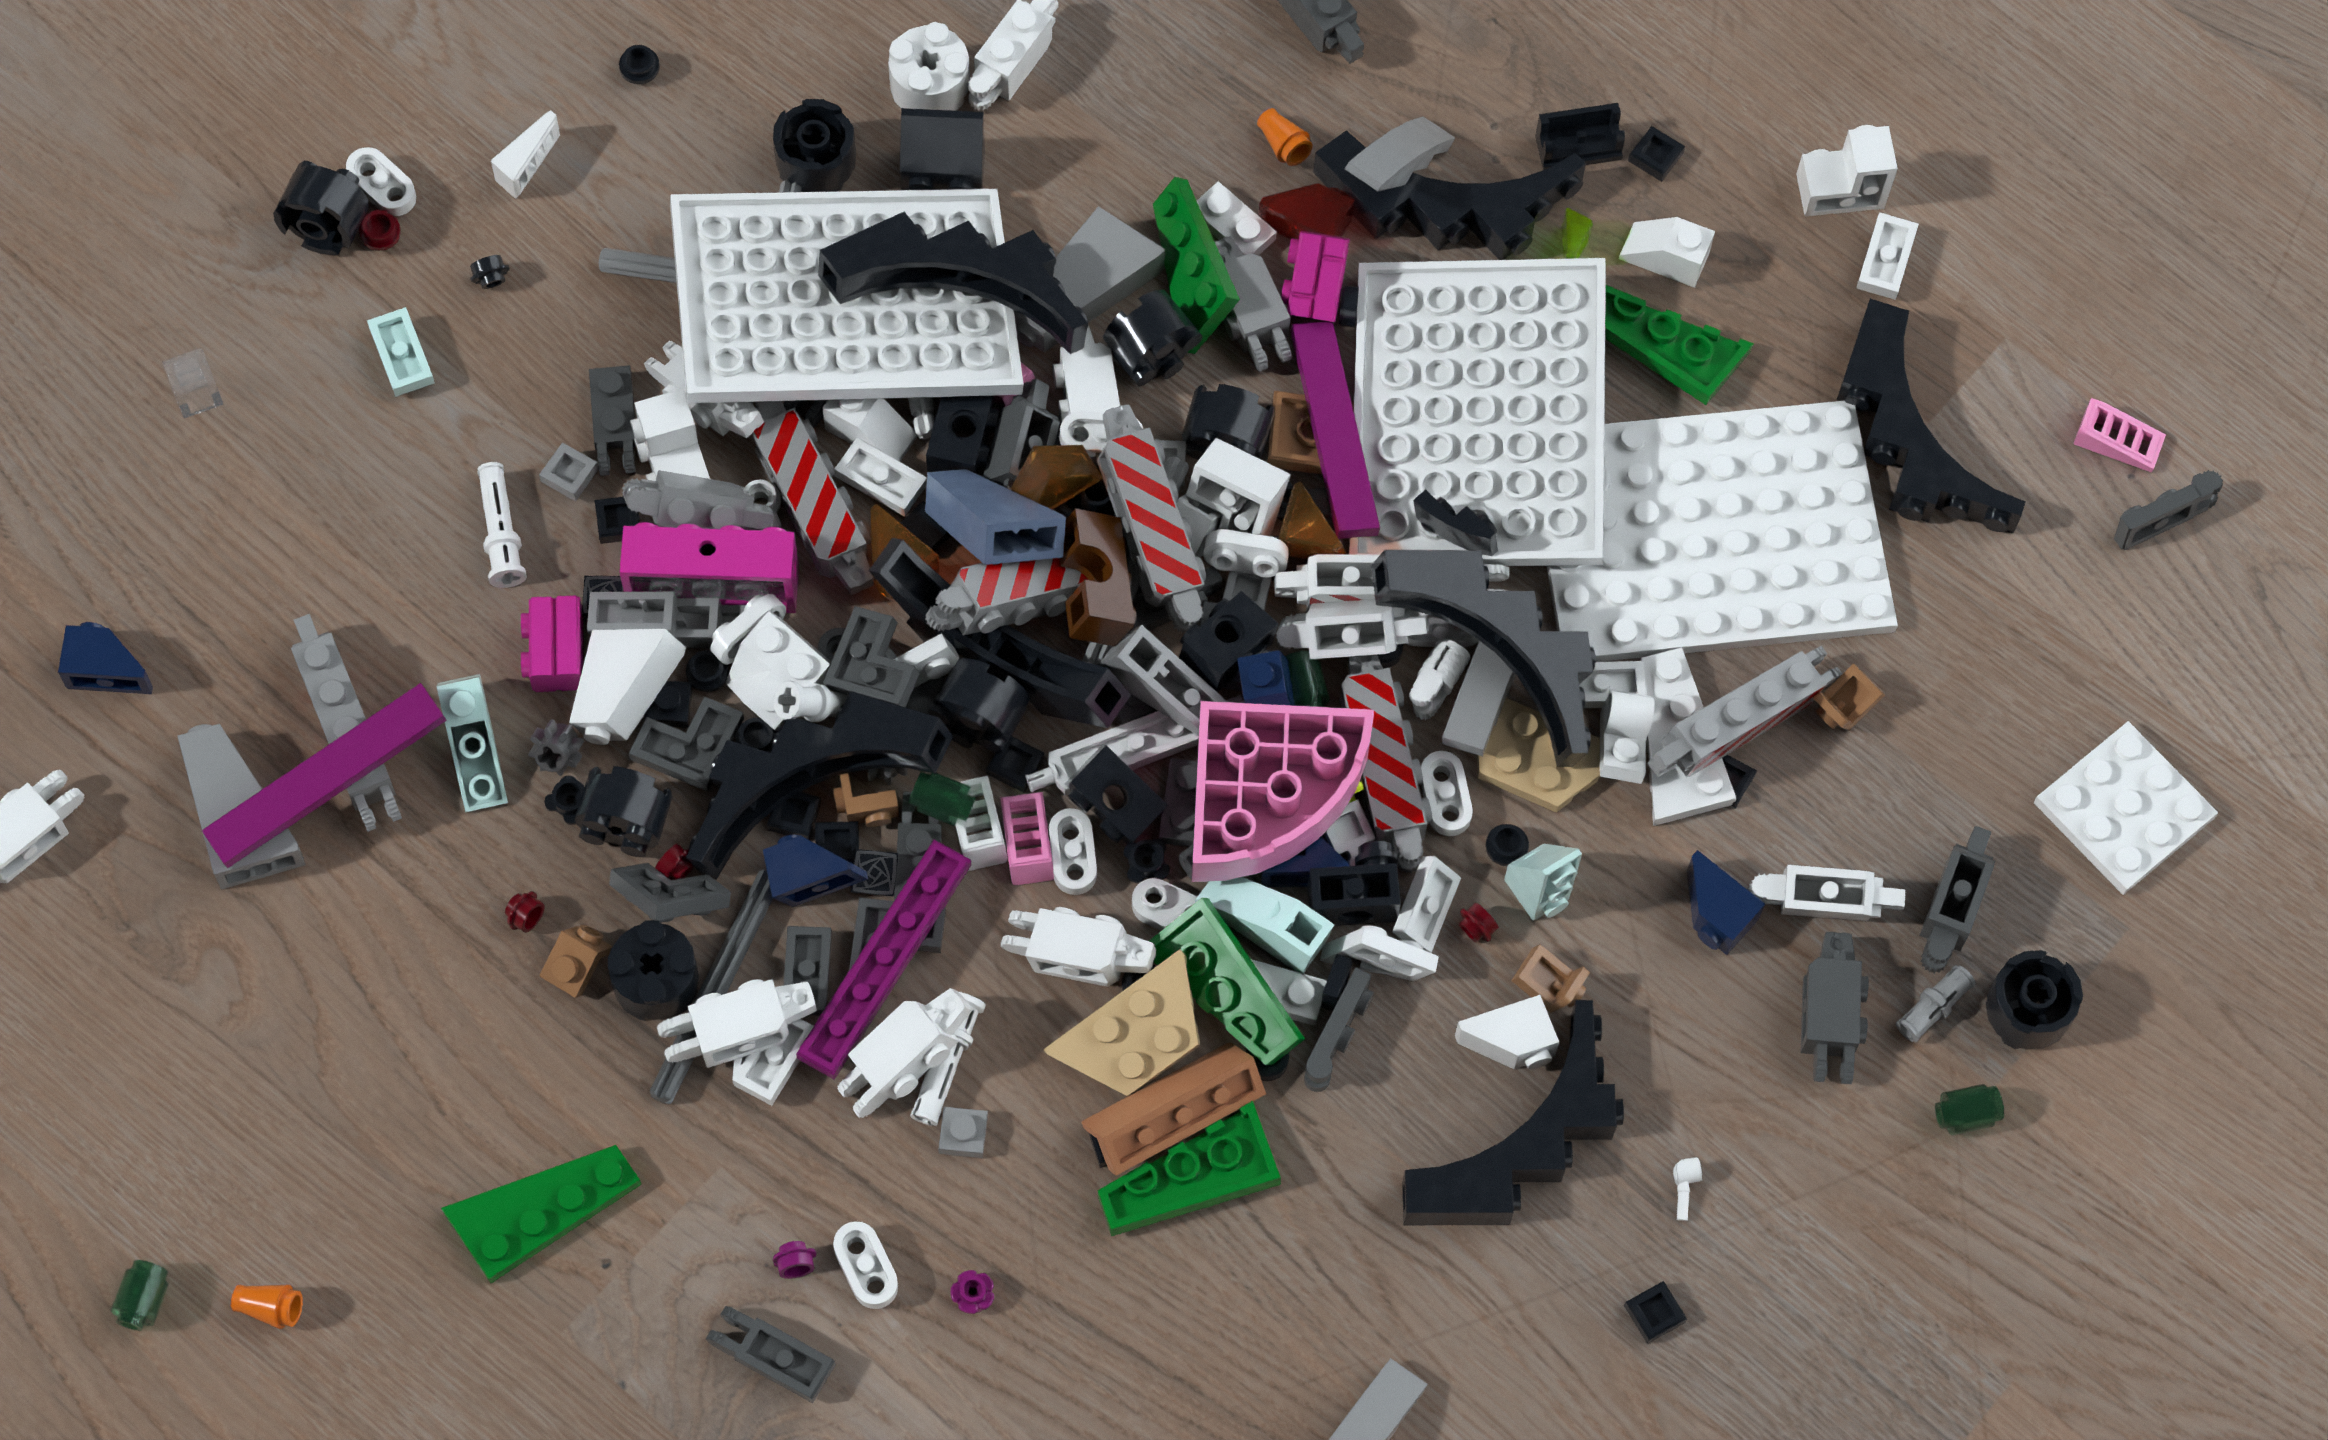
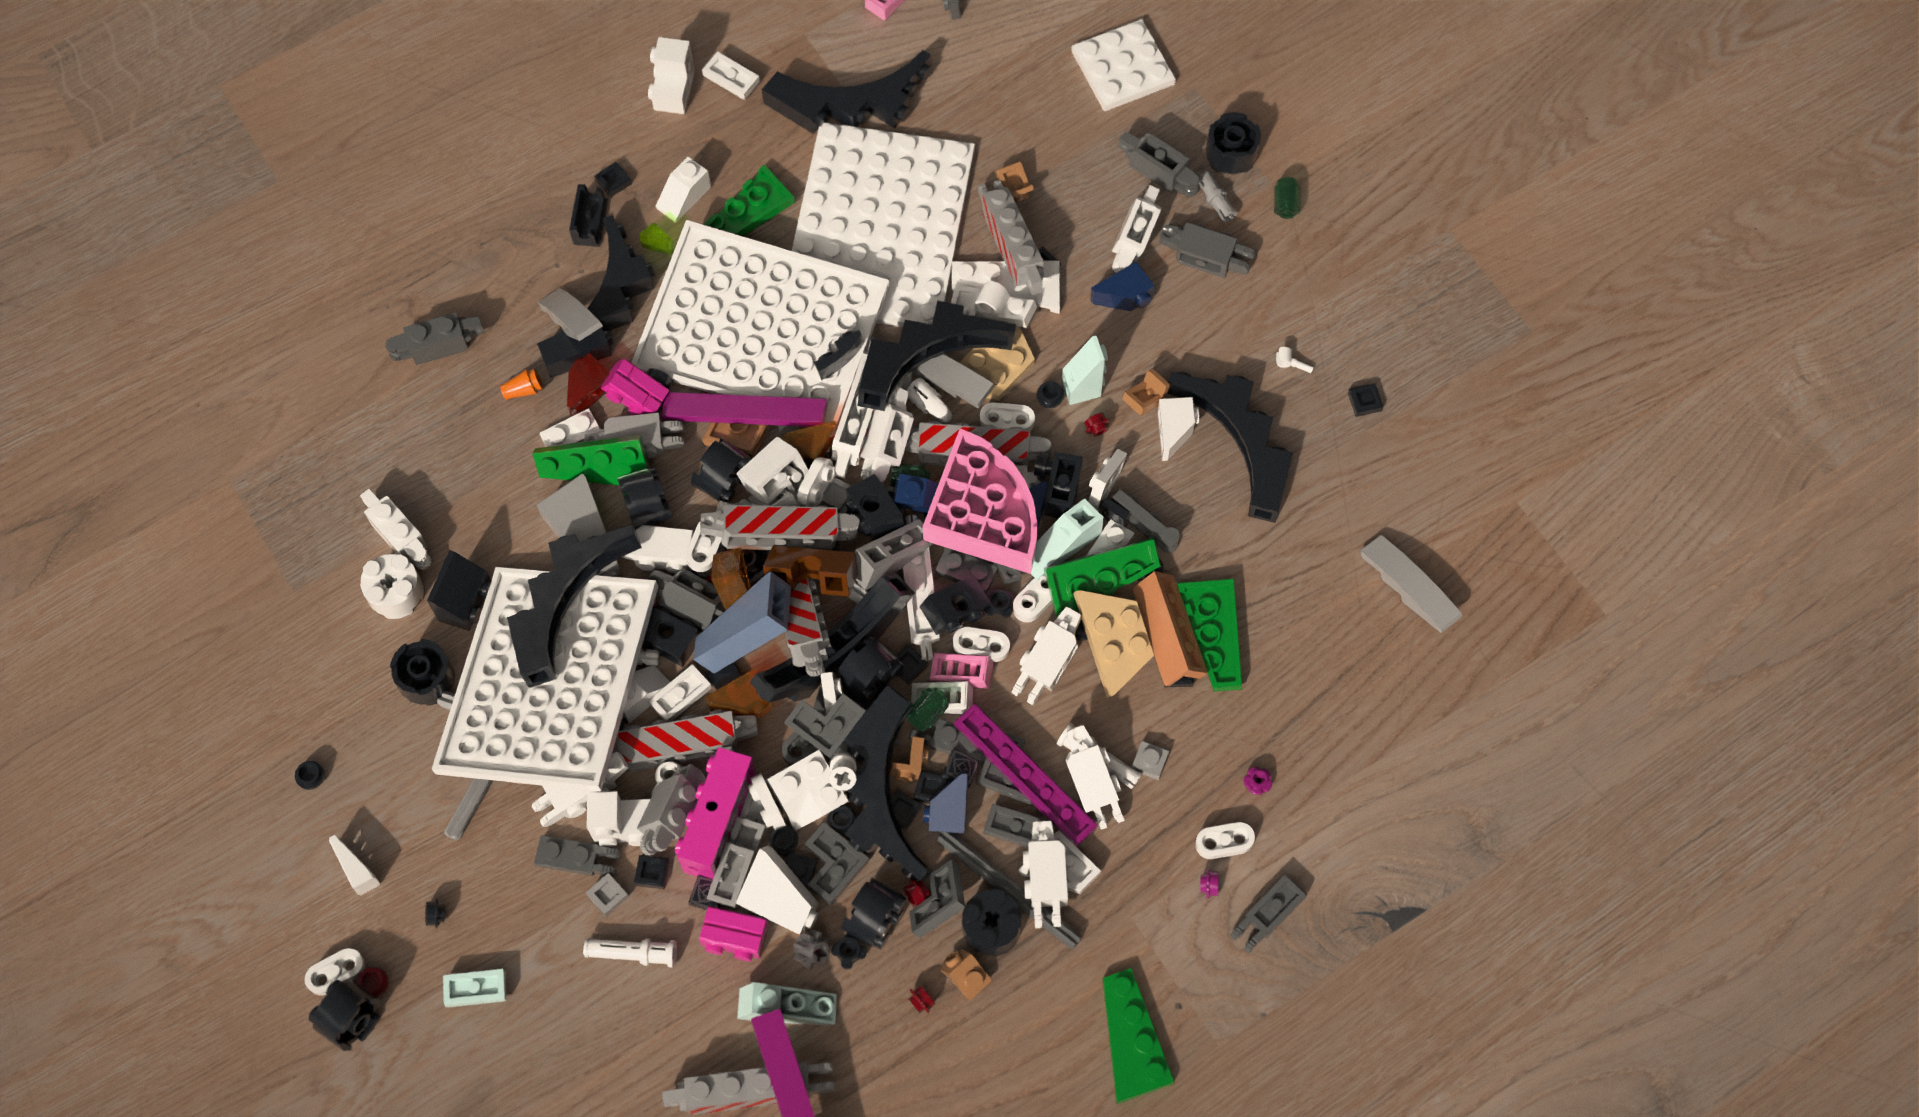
camera: 70 degrees left, 0 degrees up
(1427, 903) = (1070, 443): white plate -> none

